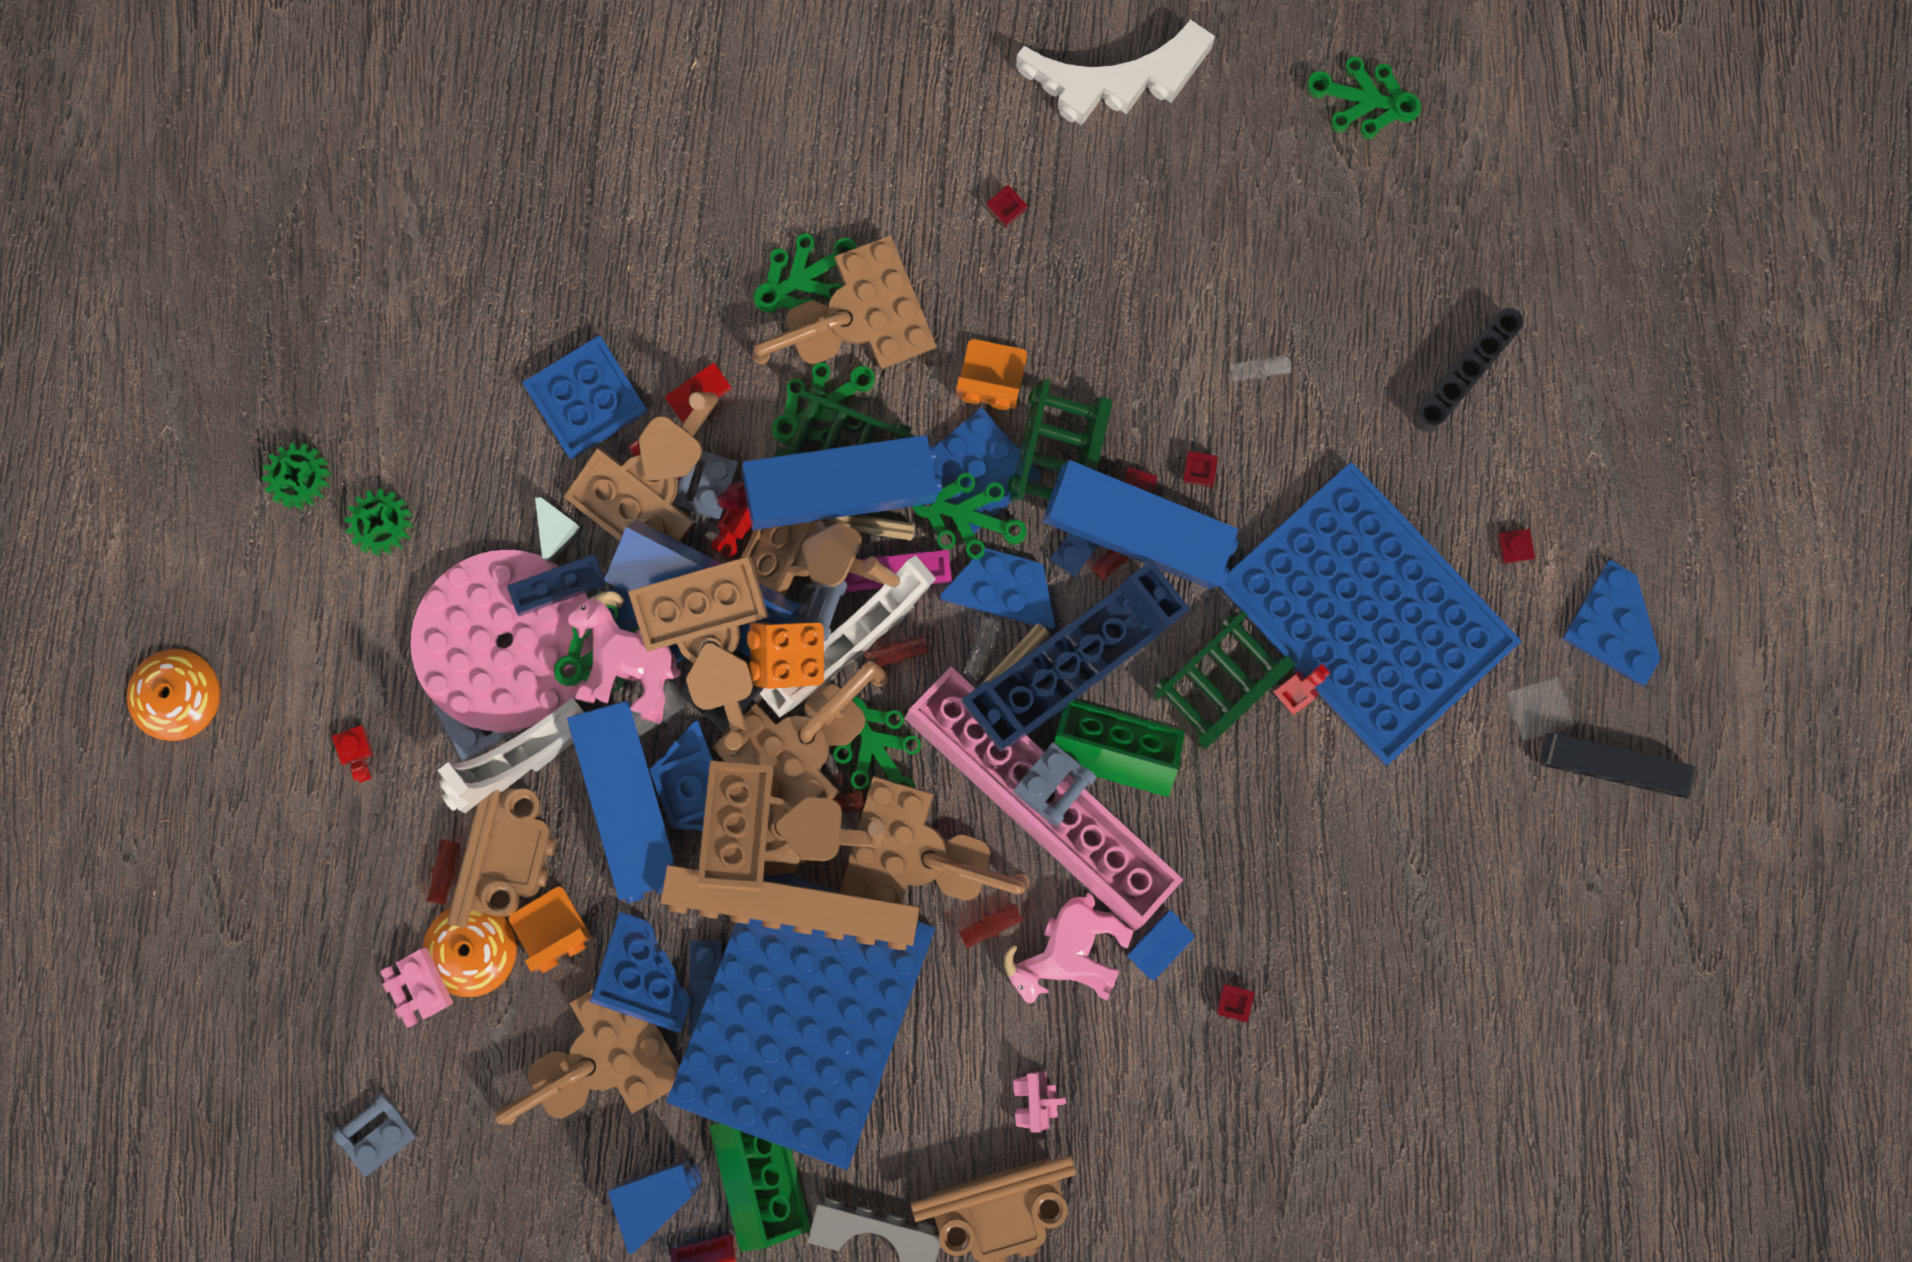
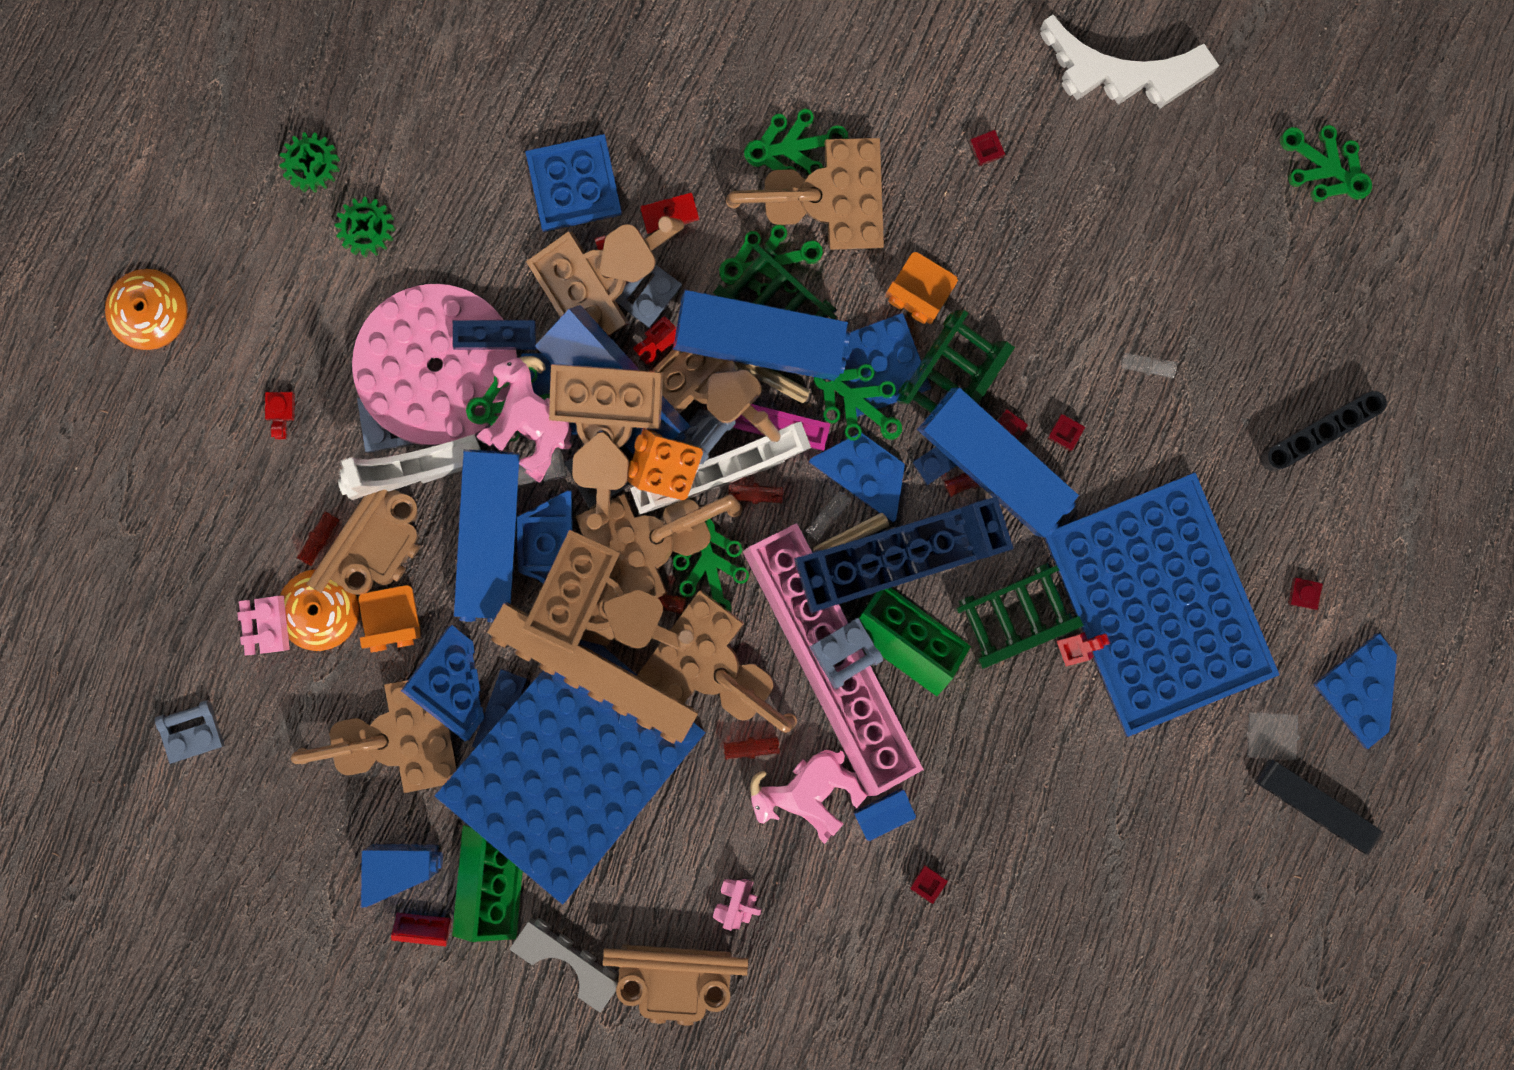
camera: 15 degrees right, 5 degrees up
(554, 529) = (508, 286): light aqua slope -> none
(733, 497) = (667, 314): dark red plate -> none

